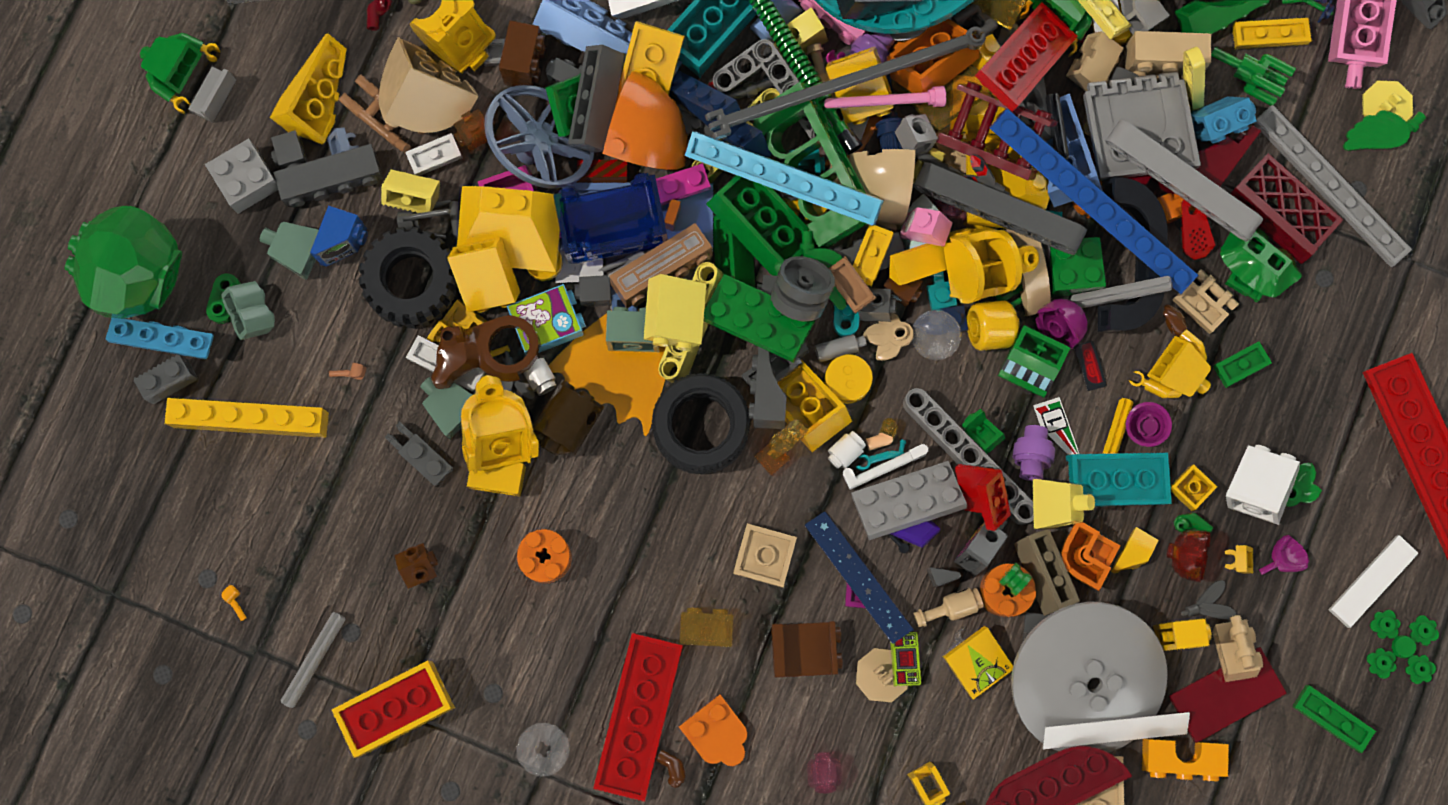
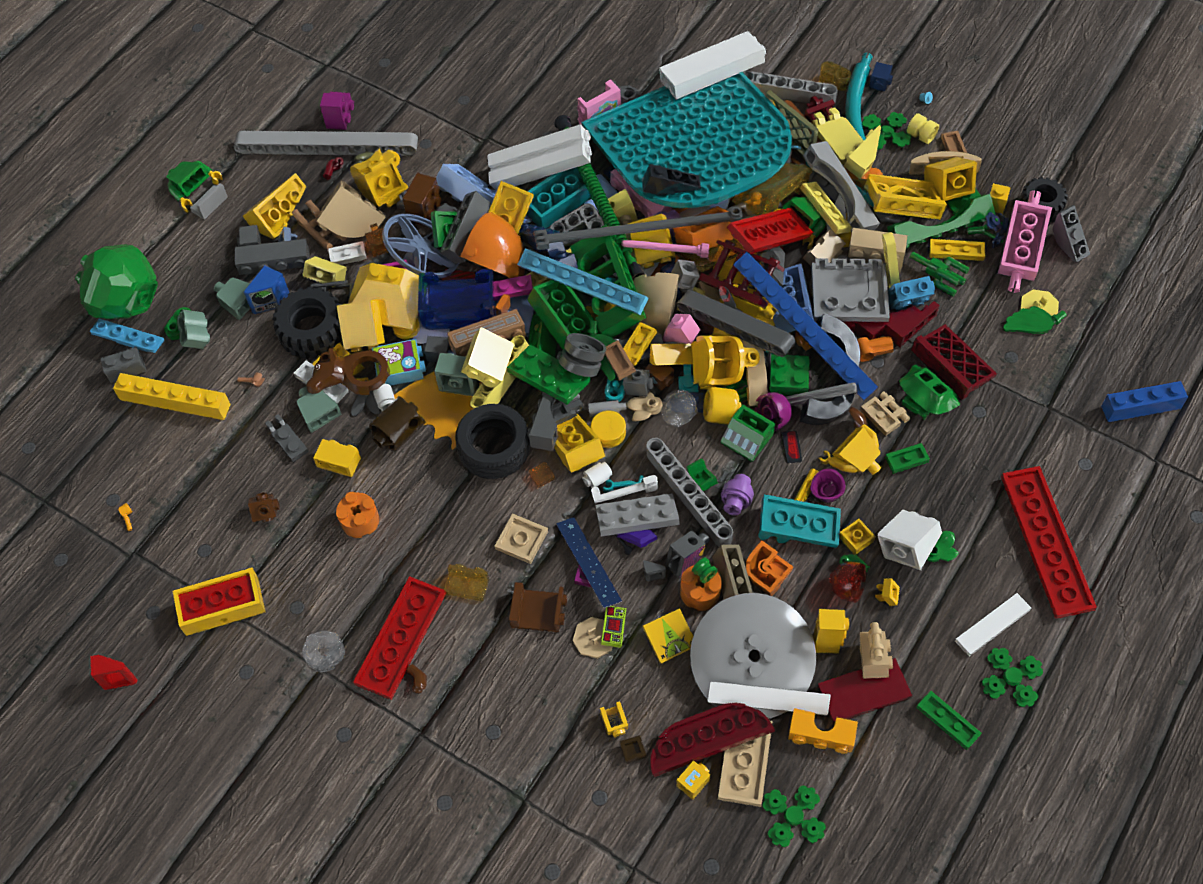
camera: 15 degrees right, 20 degrees down
(242, 176) = (213, 249): light grey brick -> none
(313, 660) = (171, 563): light grey axle -> none
(496, 428) = (342, 418): yellow animal -> none
(716, 733) = (457, 659): orange plate -> none
(786, 439) = (553, 453): clear yellow hinge -> none
(824, 773) = (533, 698): clear pink head -> none
(885, 436) = (629, 471): arm -> none
(954, 606) = (658, 593): tan piece -> none
(984, 493) = (693, 511): red bracket -> none
(1053, 417) = (759, 479): sticker -> none
(1057, 132) = (787, 277): black axle -> none
(1059, 504) = (748, 526): light yellow torso -> none
(1136, 551) = (805, 575): yellow slope -> none
(1184, 180) = (875, 324): light grey beam -> none
(1194, 222) = (882, 357): red piece -> none
(1205, 605) = (857, 621): dark grey piece -> none
(1287, 556) = (925, 595): magenta piece -> none
(1332, 186) = (992, 352): light grey tile -> none

